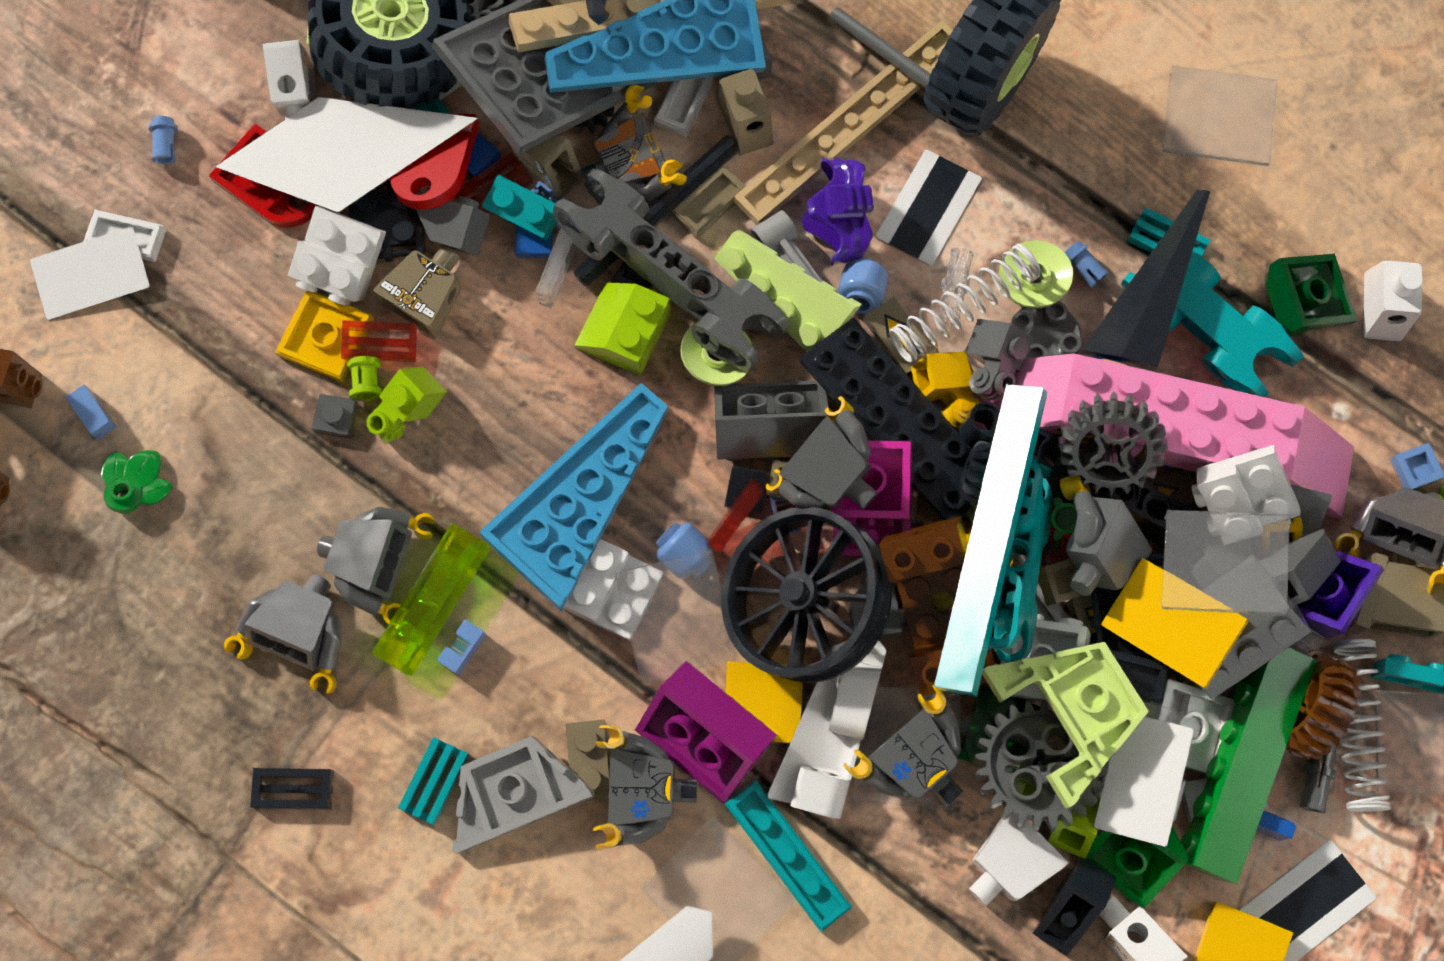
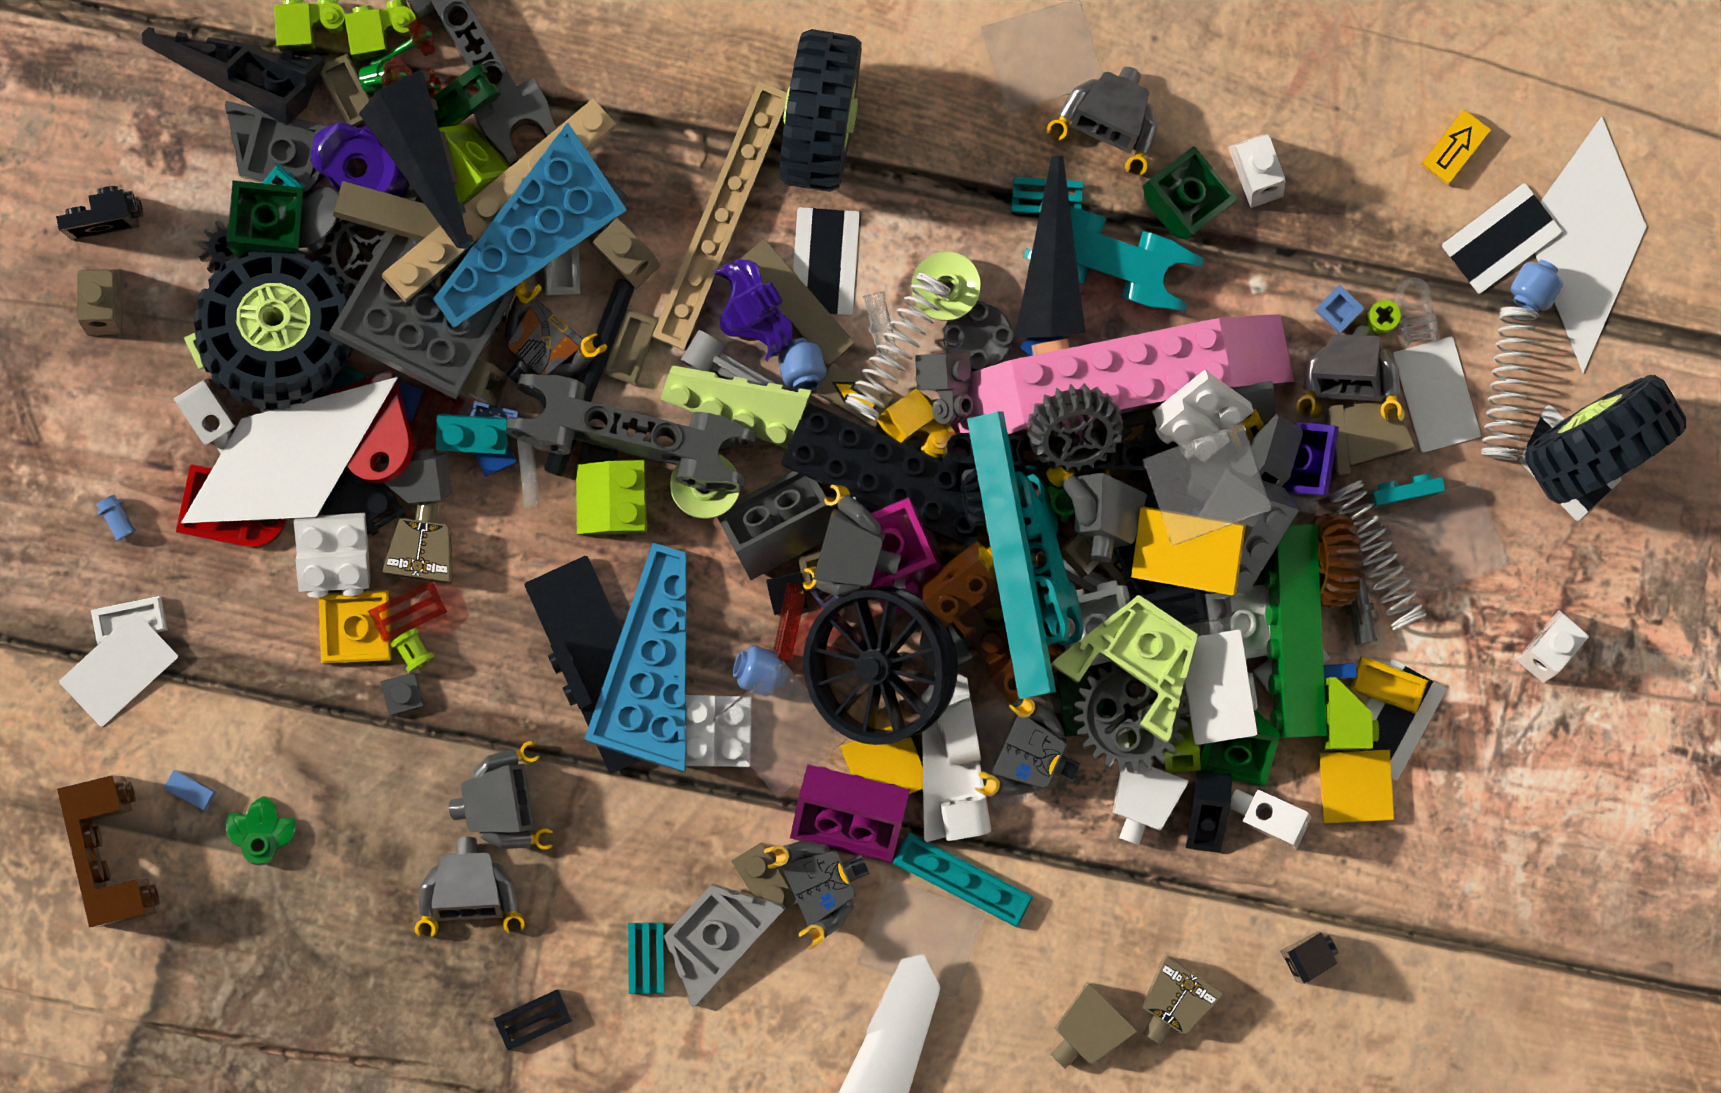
camera: 30 degrees left, 10 degrees up
(407, 397) = (460, 655): lime brick -> none
(431, 600) = (569, 812): clear neon green slope -> none
(463, 648) = (613, 839): medium blue piece -> none
(528, 439) = (581, 636): none -> black bracket
(880, 46) = (718, 134): dark grey bar -> none
(889, 238) = (800, 304): none -> dark tan tile
(1085, 263) = (984, 254): medium blue pin -> none
(1267, 880) = (1347, 719): none -> lime slope
(1269, 187) = (1112, 112): none -> flat silver torso
(1318, 865) = (1389, 685): none -> yellow tile

